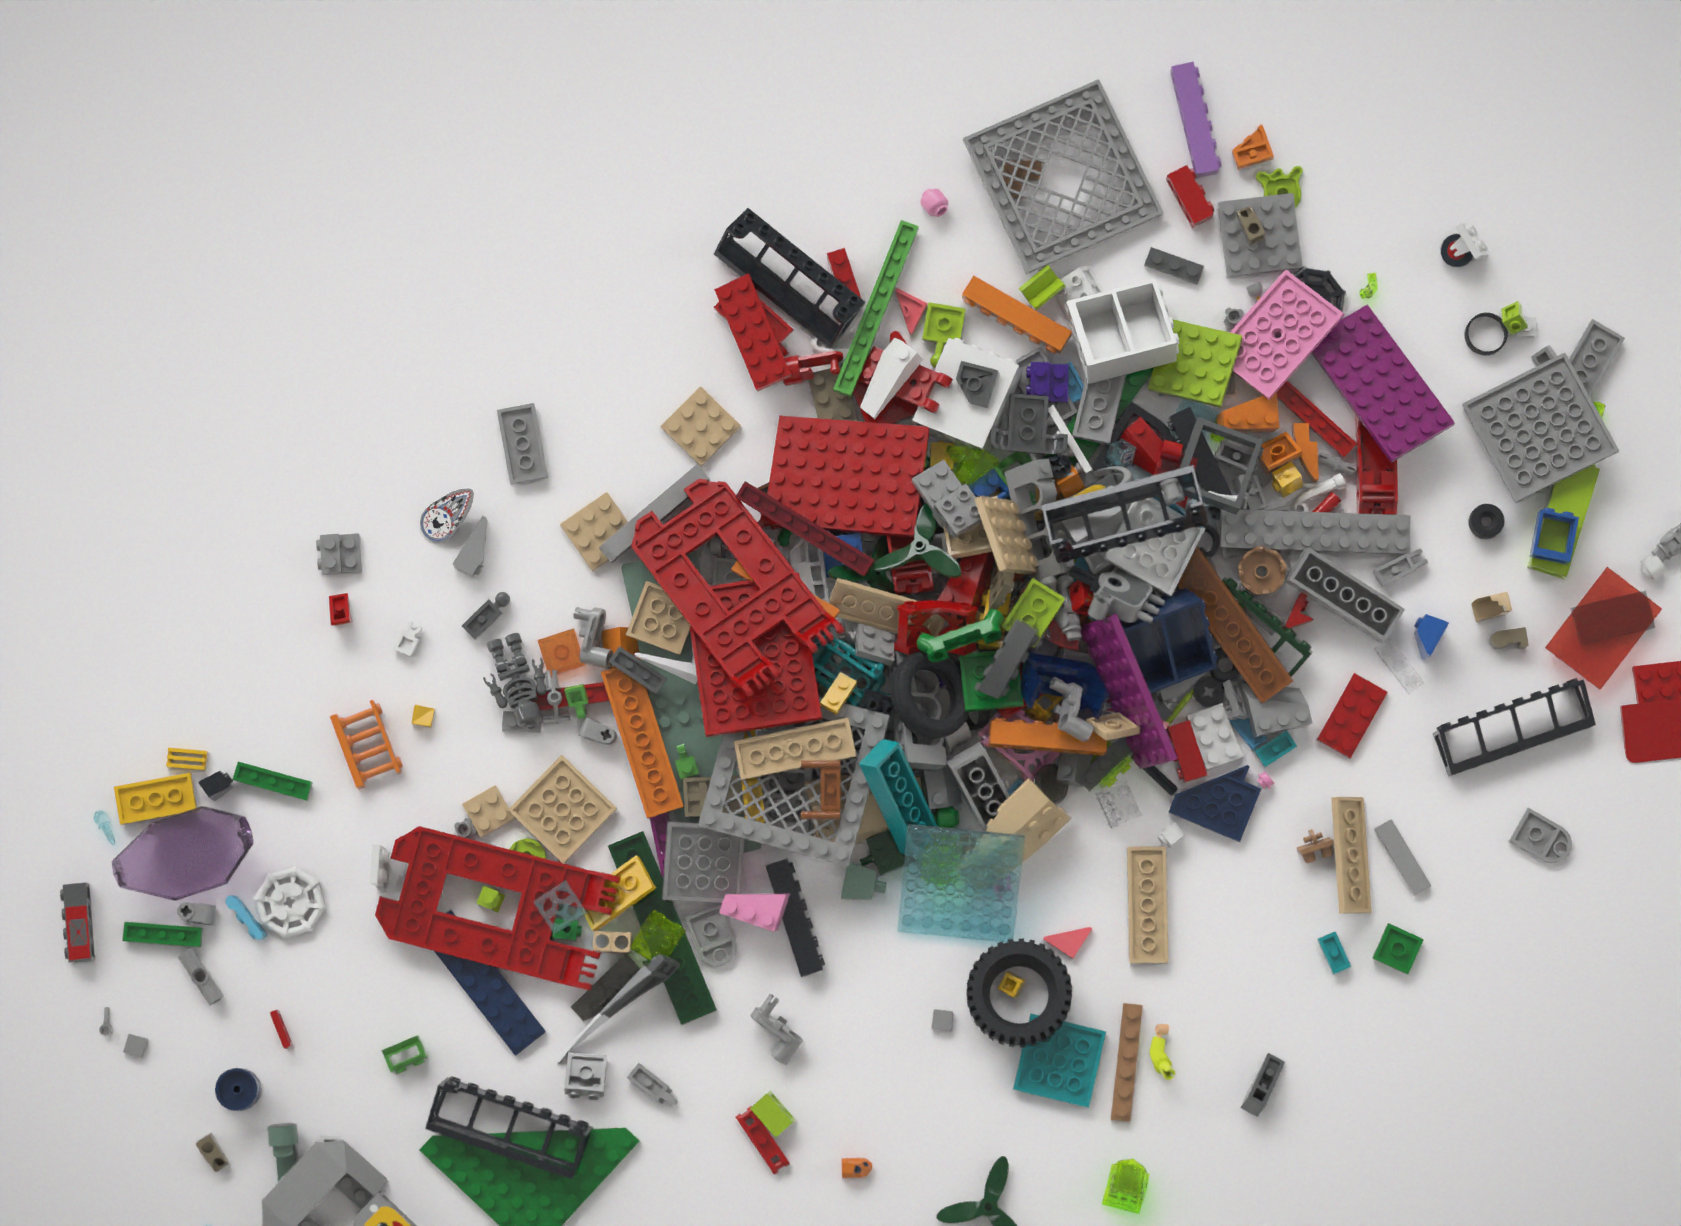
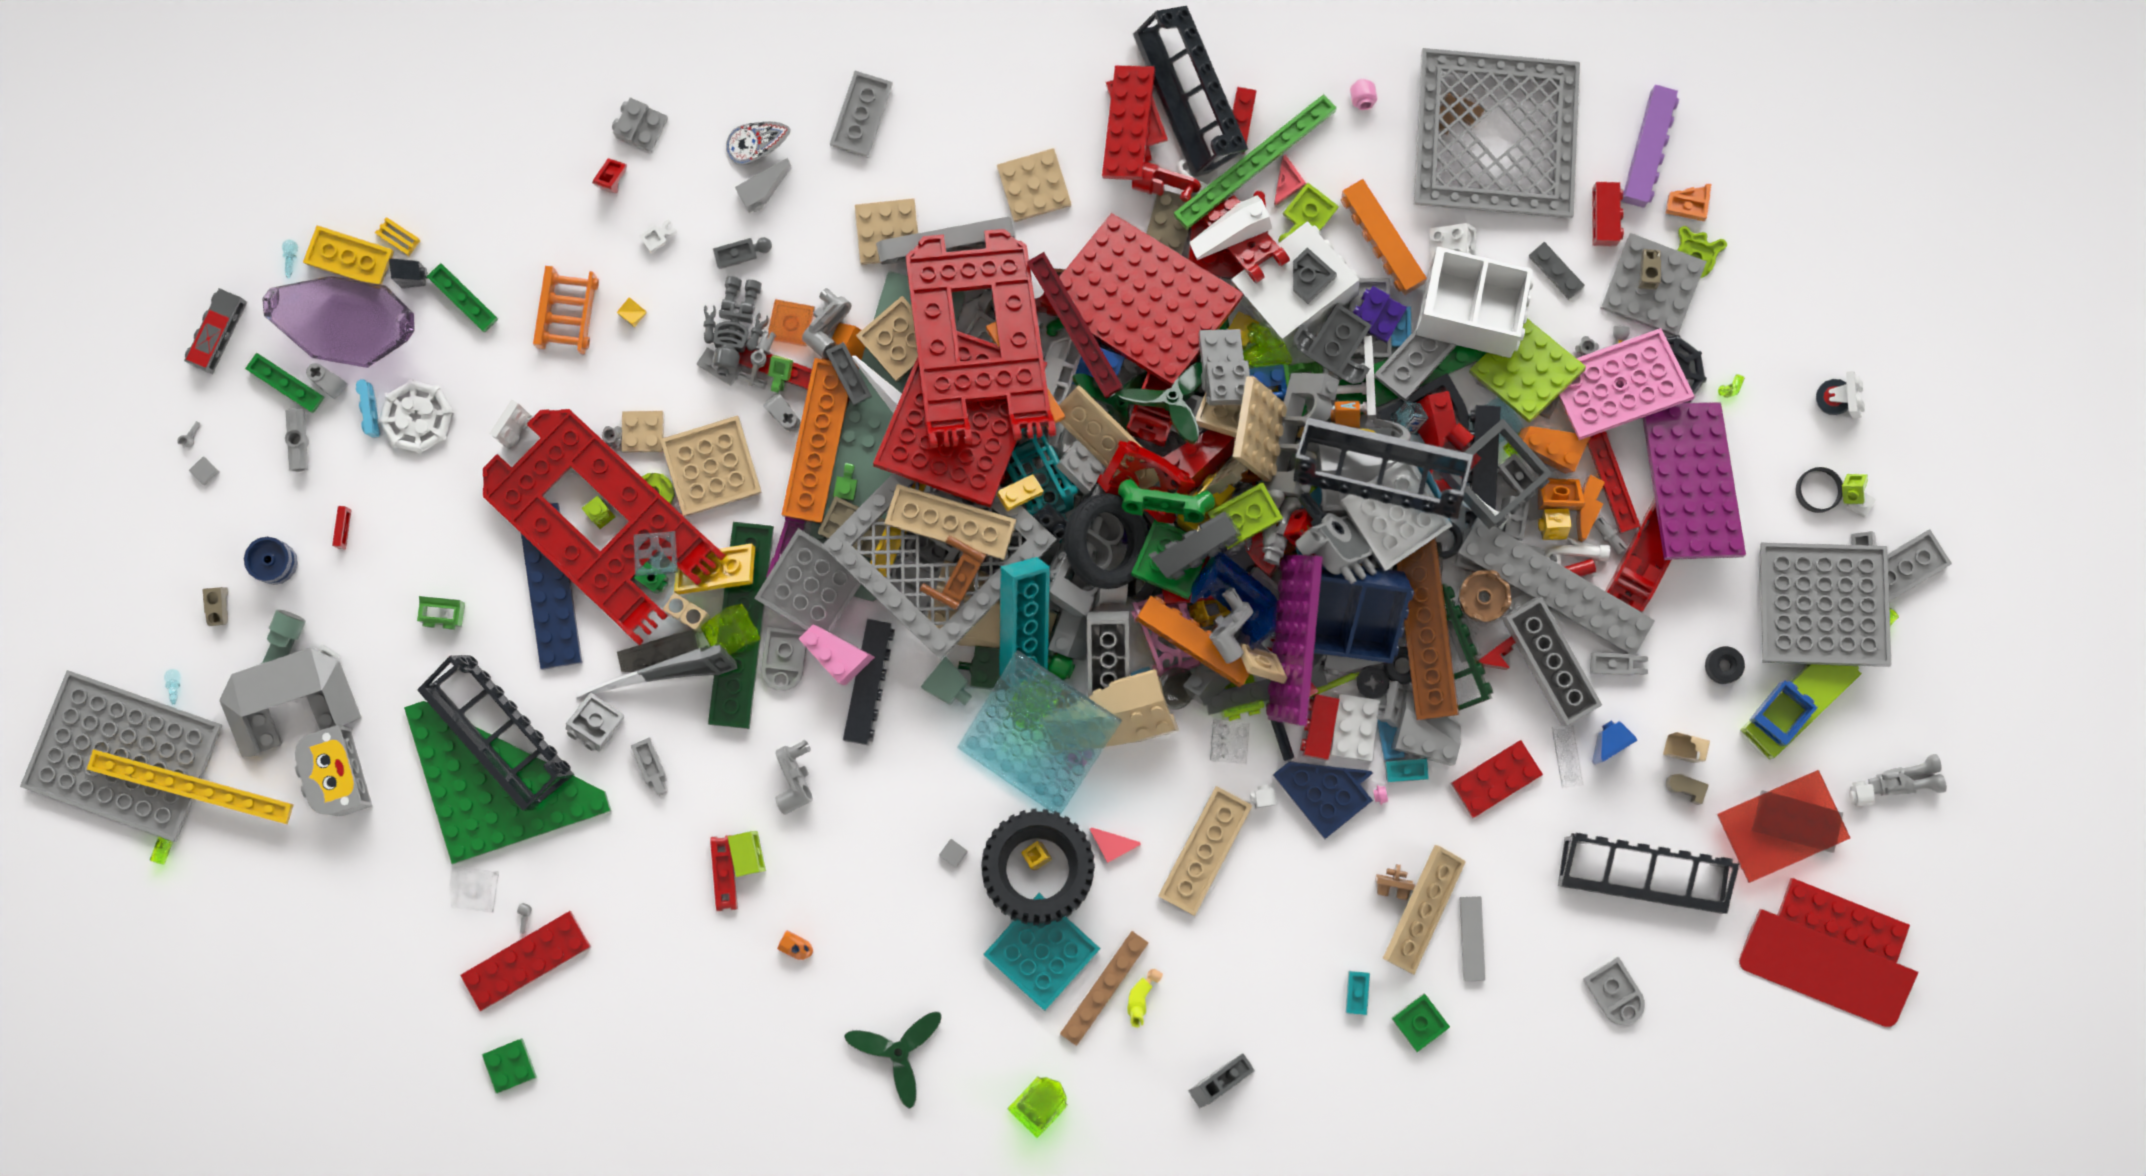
camera: 30 degrees right, 0 degrees up
(1041, 287) = (1421, 223): lime panel -> none
(1063, 468) = (1346, 399): black gear -> none
(1172, 491) = (1439, 469): light grey piece -> none

